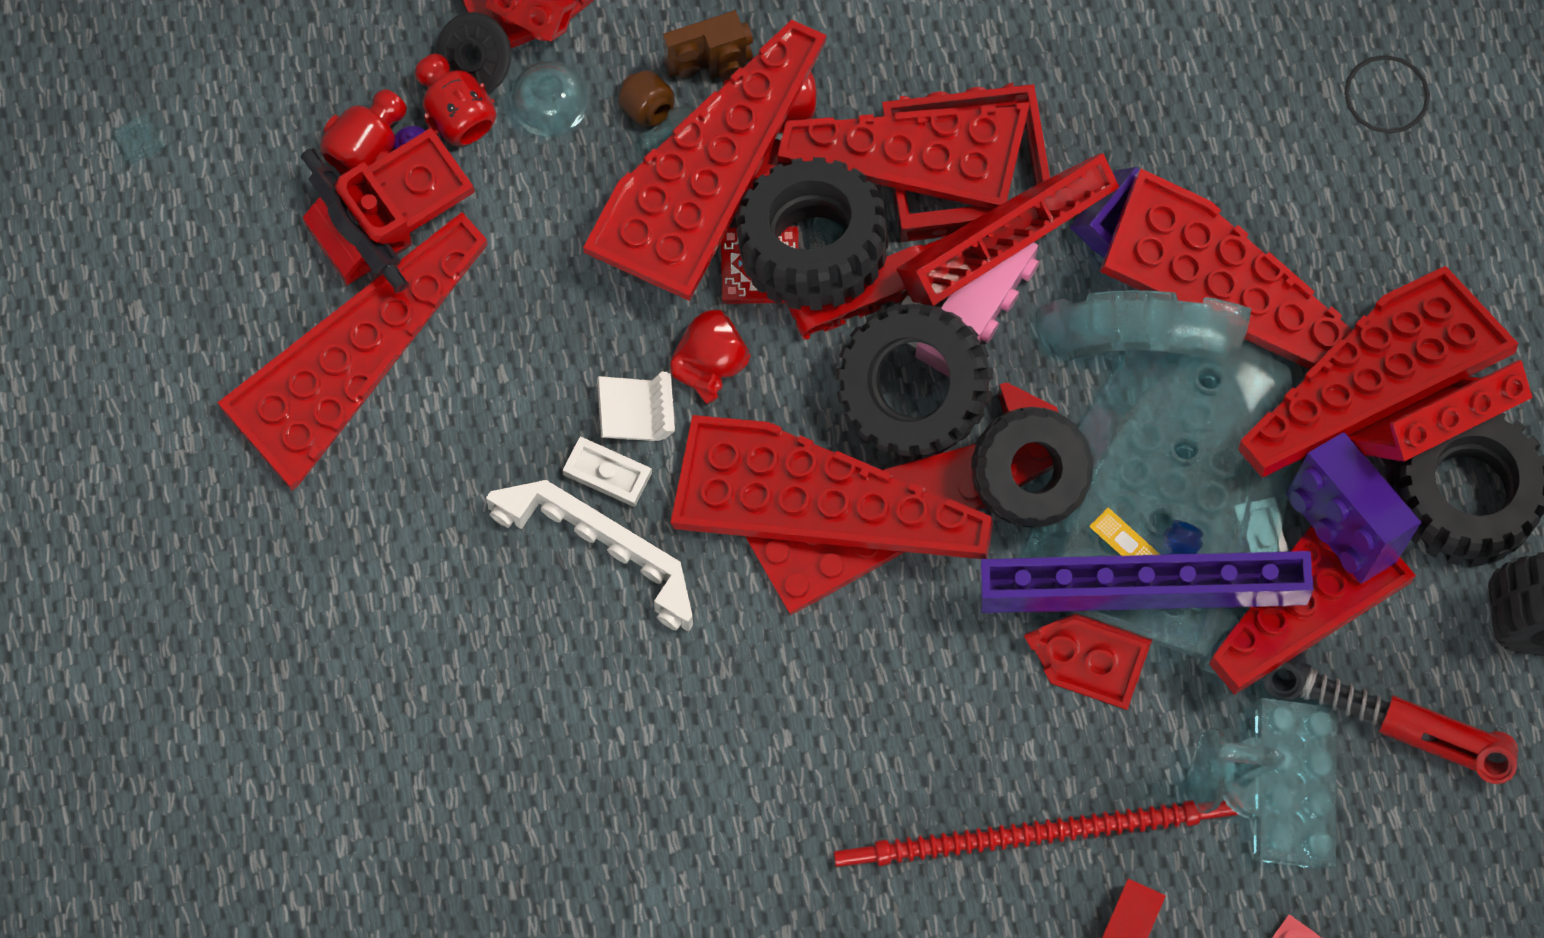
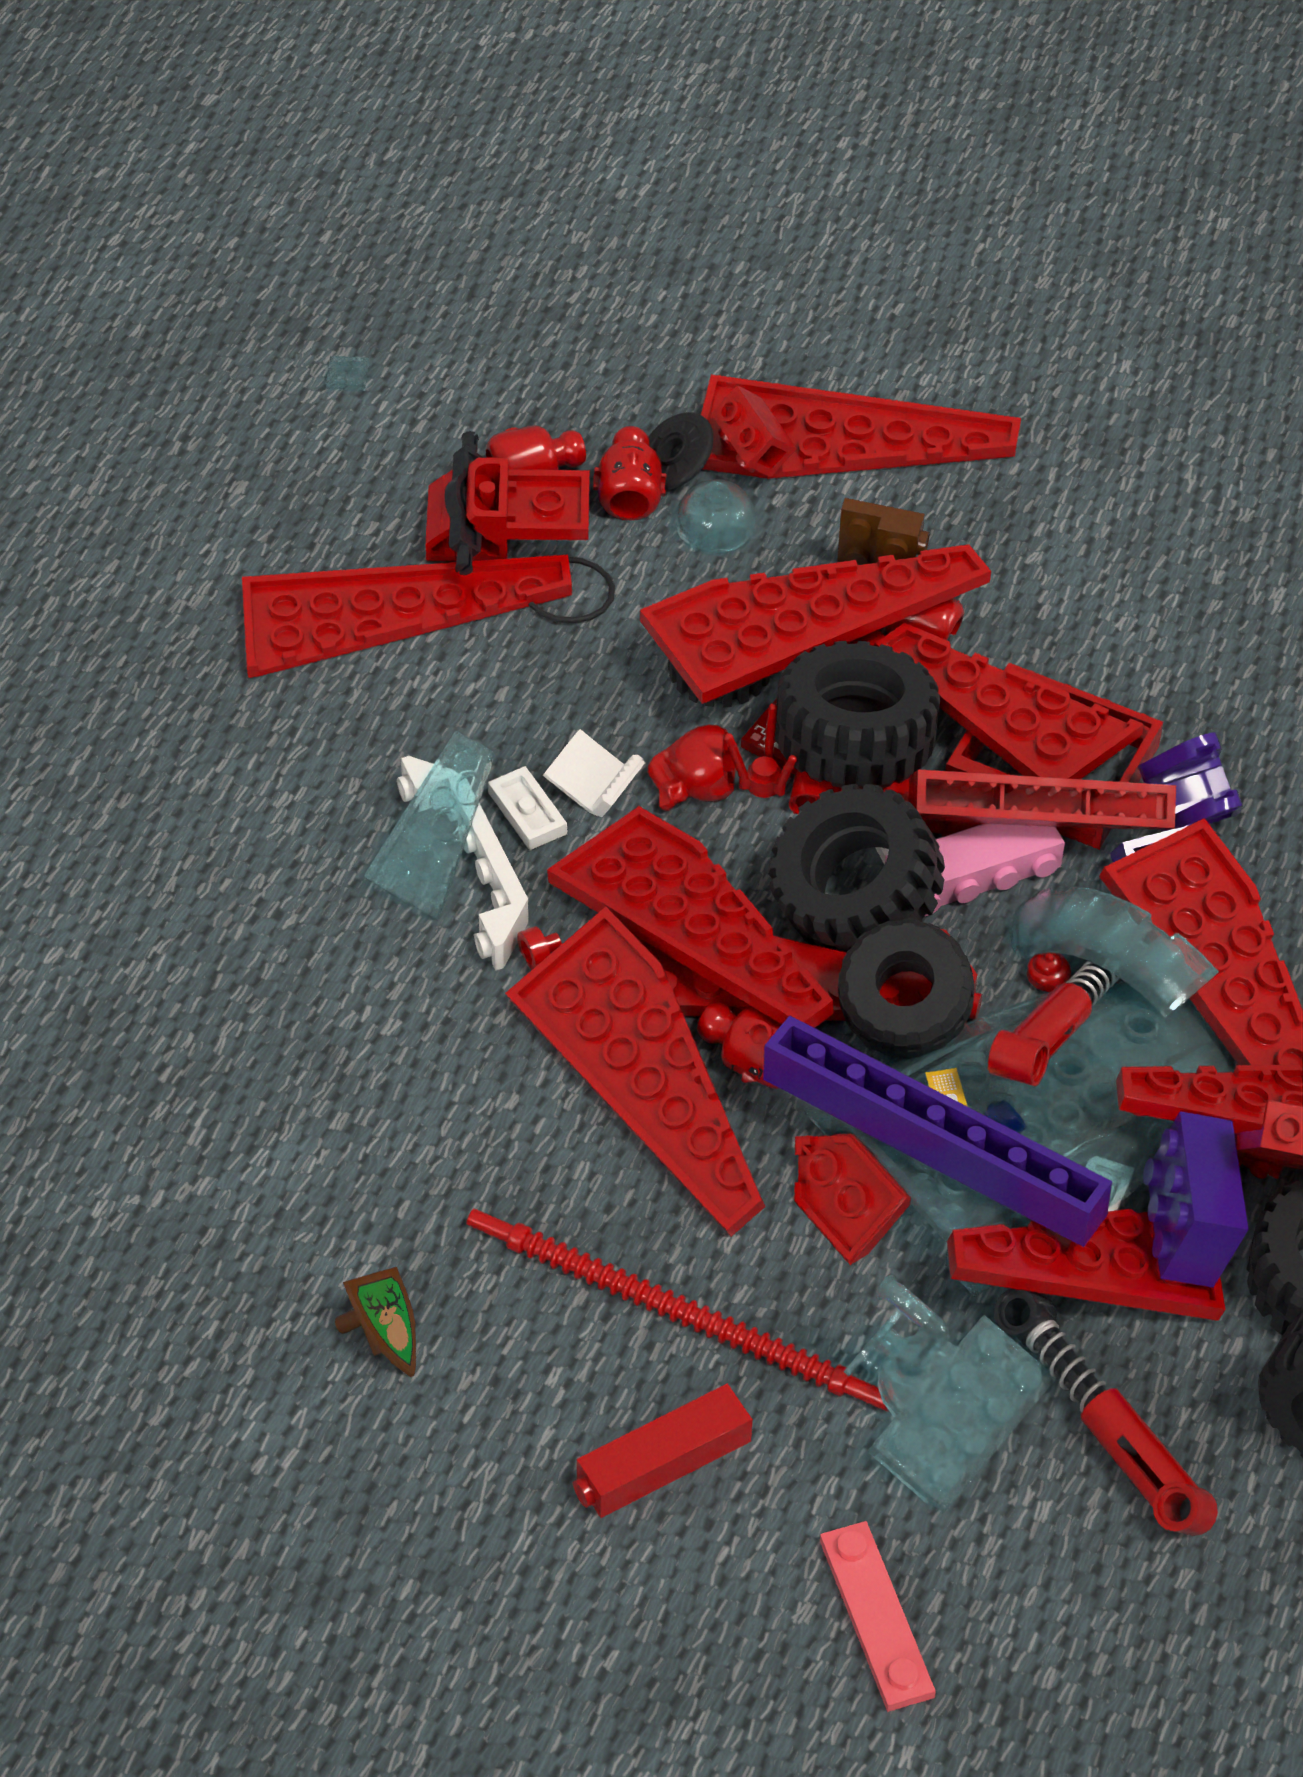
camera: 35 degrees right, 20 degrees down
(516, 221) = (606, 575): none -> black piece
(563, 557) = (431, 834): none -> clear light blue wing
(646, 98) = (798, 550): reddish brown head -> none
(711, 594) = (536, 946): none -> red tile
(765, 321) = (763, 774): none -> red plant
(834, 629) = (625, 1034): none -> red wing
(935, 577) = (741, 1037): none -> red piece
(1095, 366) = (1048, 971): none -> red plate
(1102, 128) = (1198, 778): none -> dark purple piece
(1162, 433) = (1026, 1050): none -> red piece

